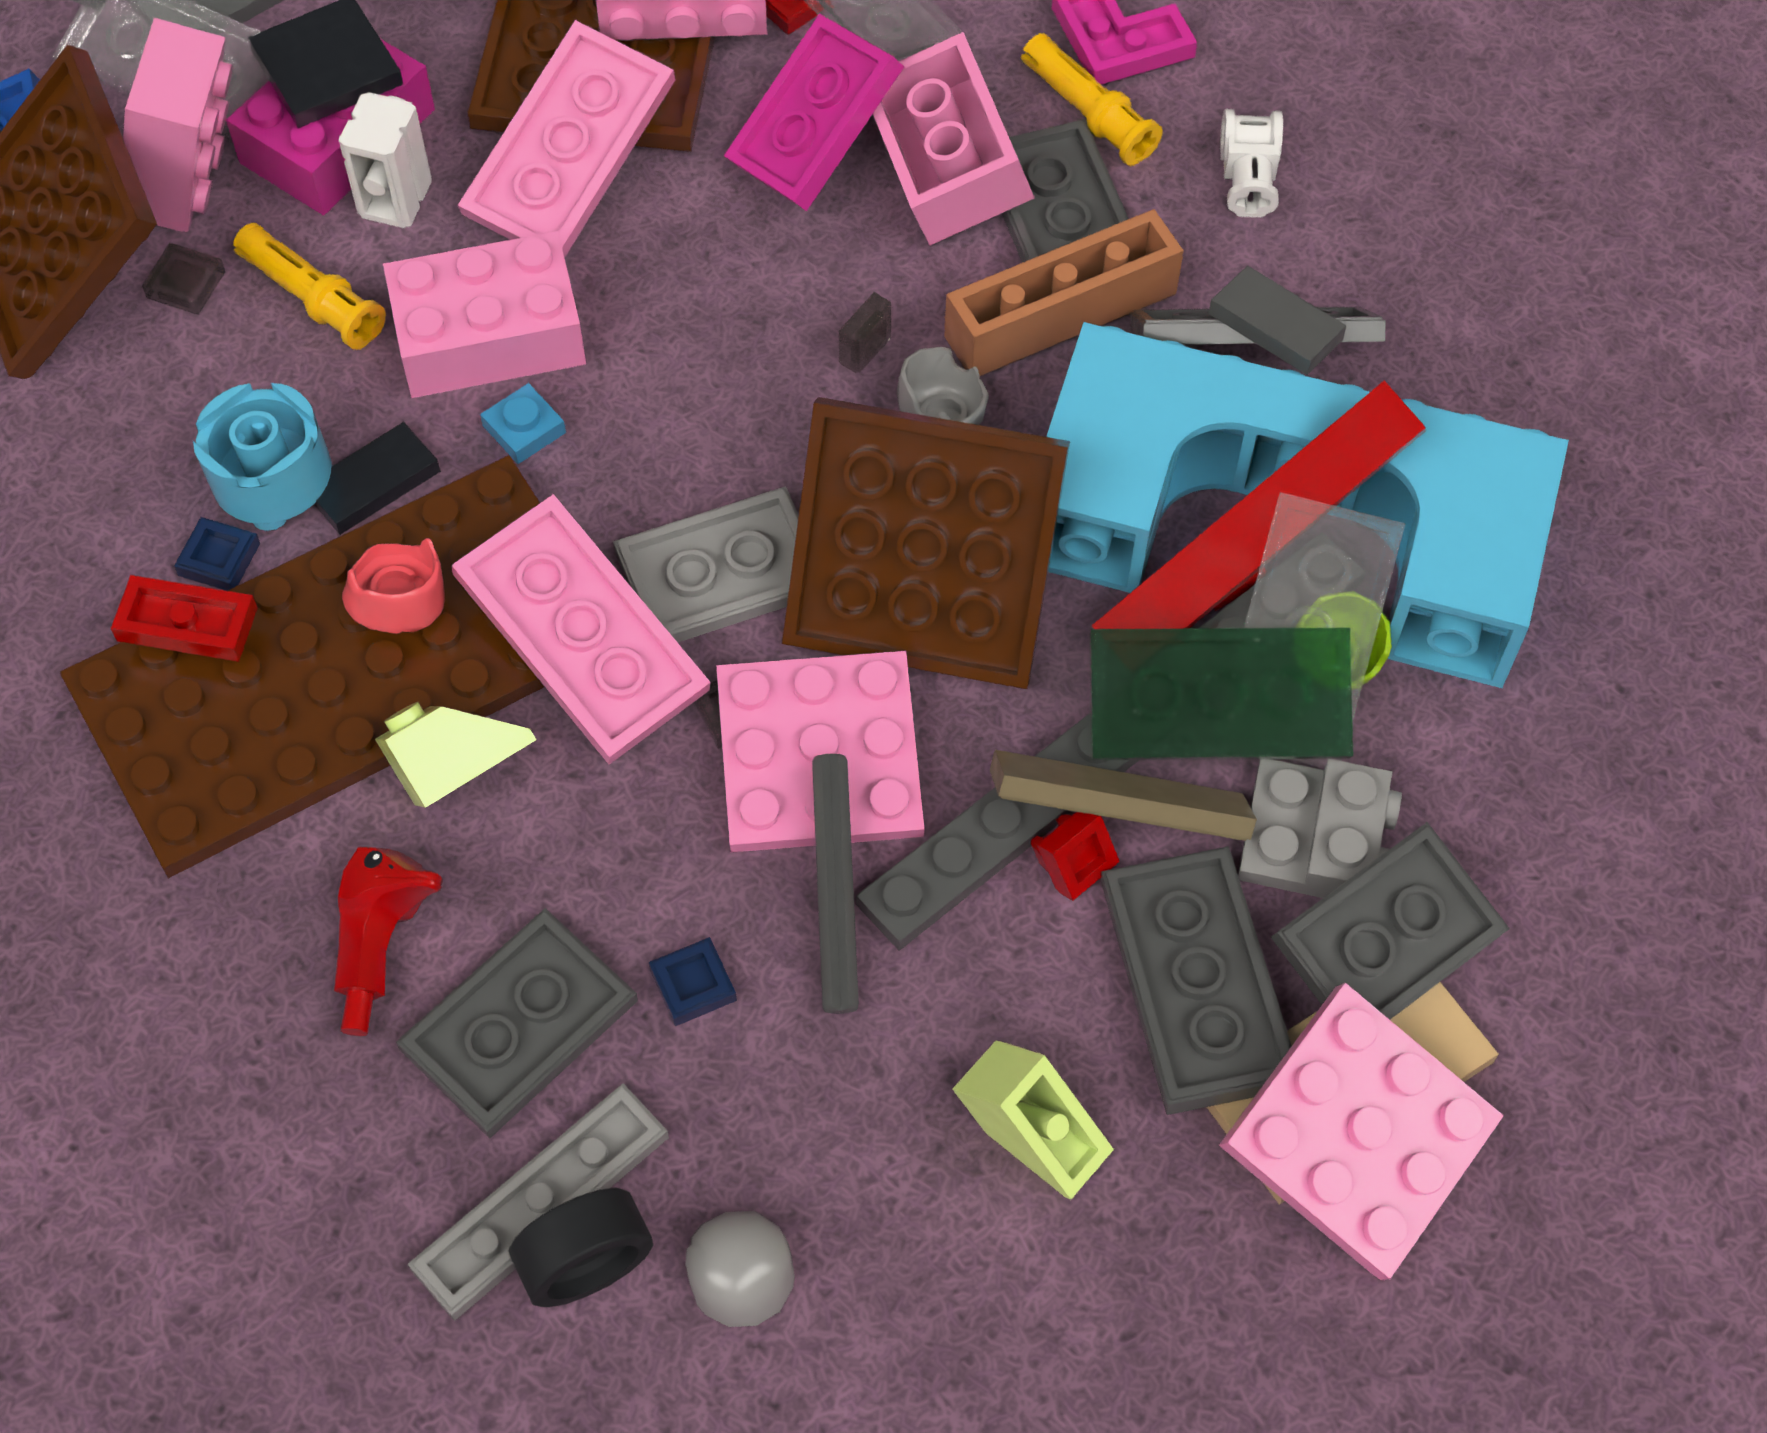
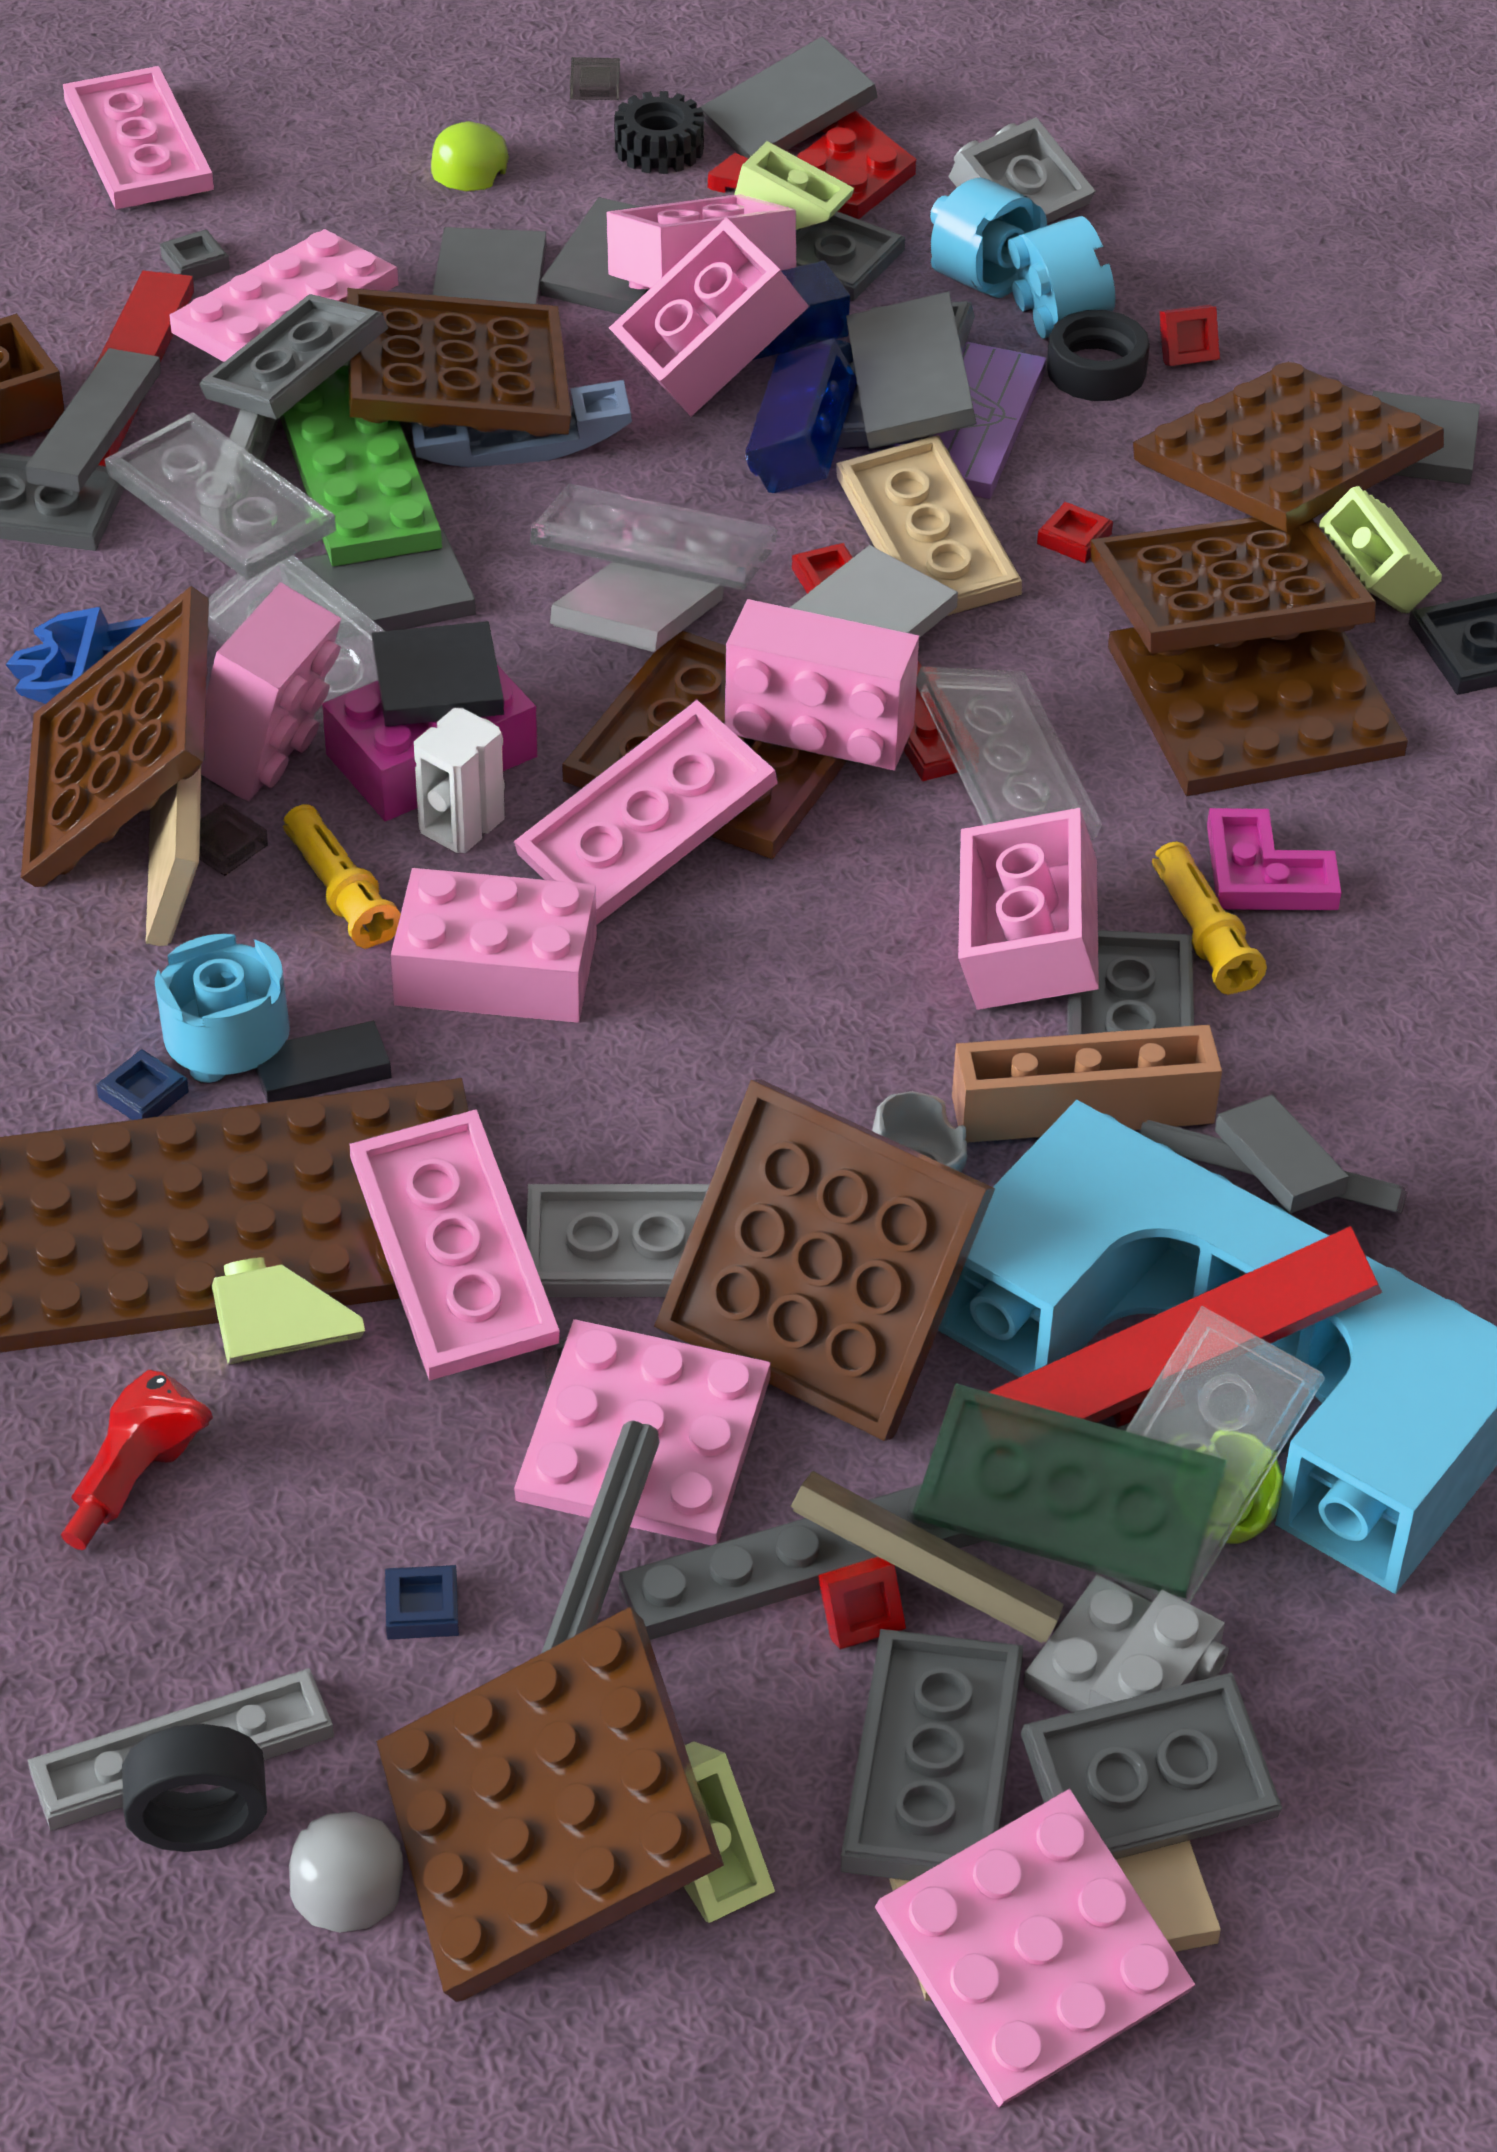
camera: 20 degrees right, 15 degrees down
(152, 320) = (172, 857): none -> tan tile
(184, 618) = (80, 1124): red plate -> none
(395, 588) = (292, 1156): coral hair -> none
(517, 1022) = (234, 1584): dark grey tile -> none
(523, 423) = (490, 1056): dark azure plate -> none
(813, 111) = (902, 847): dark pink plate -> none
(865, 333) = (867, 1067): clear smoke tile -> none
(902, 1152) = (547, 1805): none -> reddish brown plate
(1251, 159) = (1351, 1017): white connector -> none

